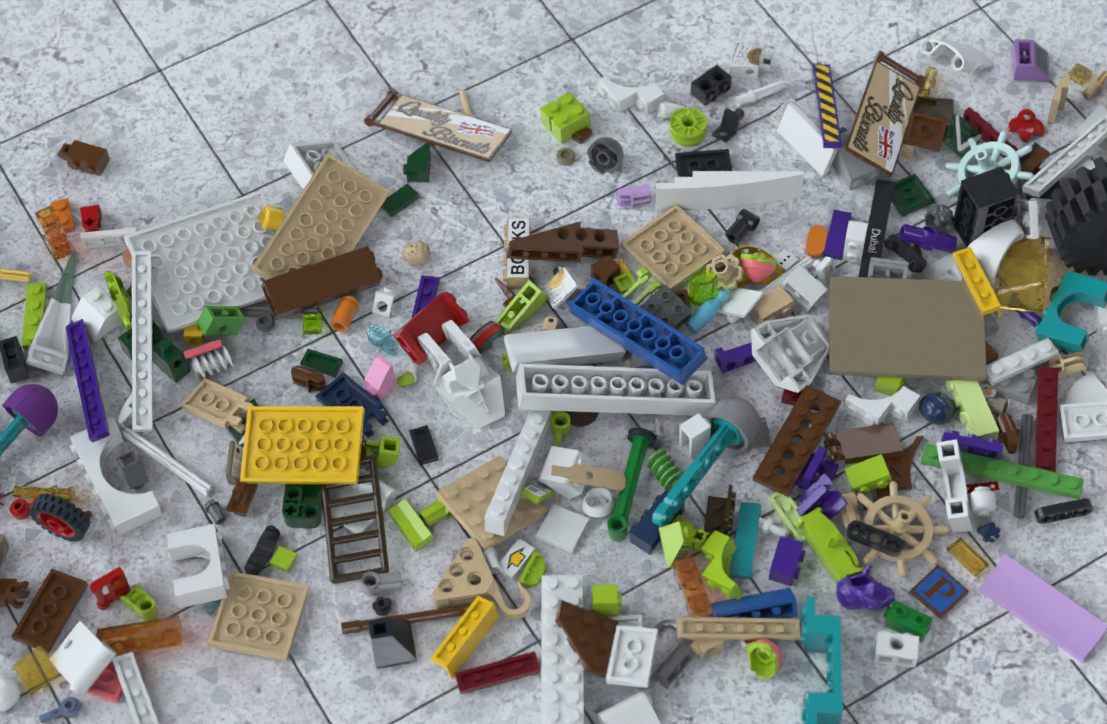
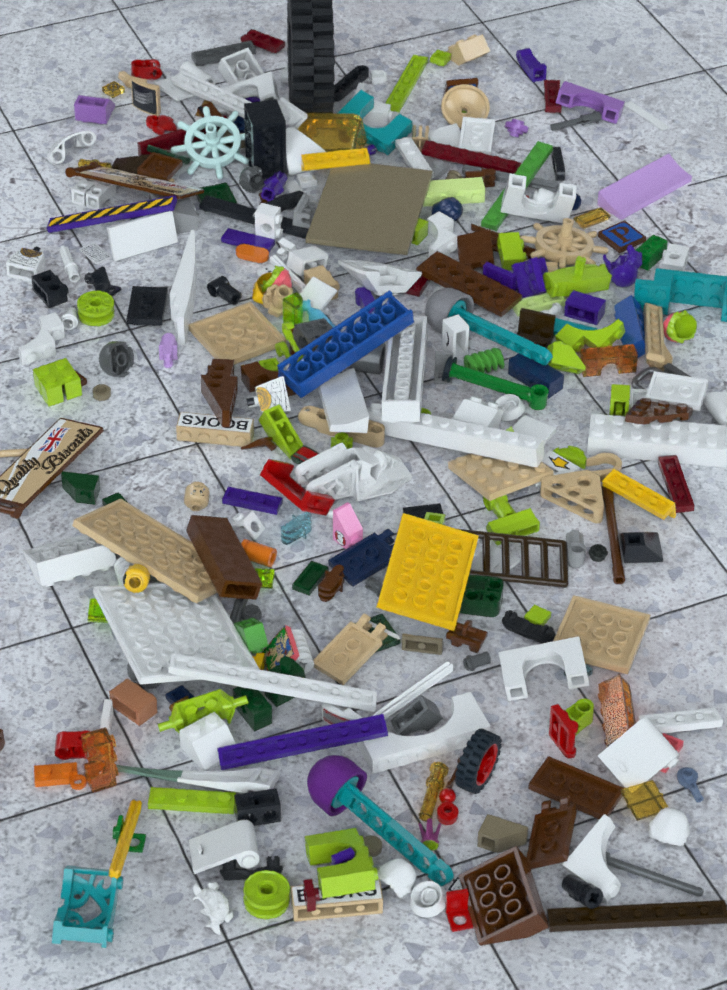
camera: 85 degrees left, 15 degrees down
(599, 476) = (496, 391): tan piece -> none
(876, 546) = (583, 243): black beam -> none
(973, 444) = (497, 186): dark purple plate -> none

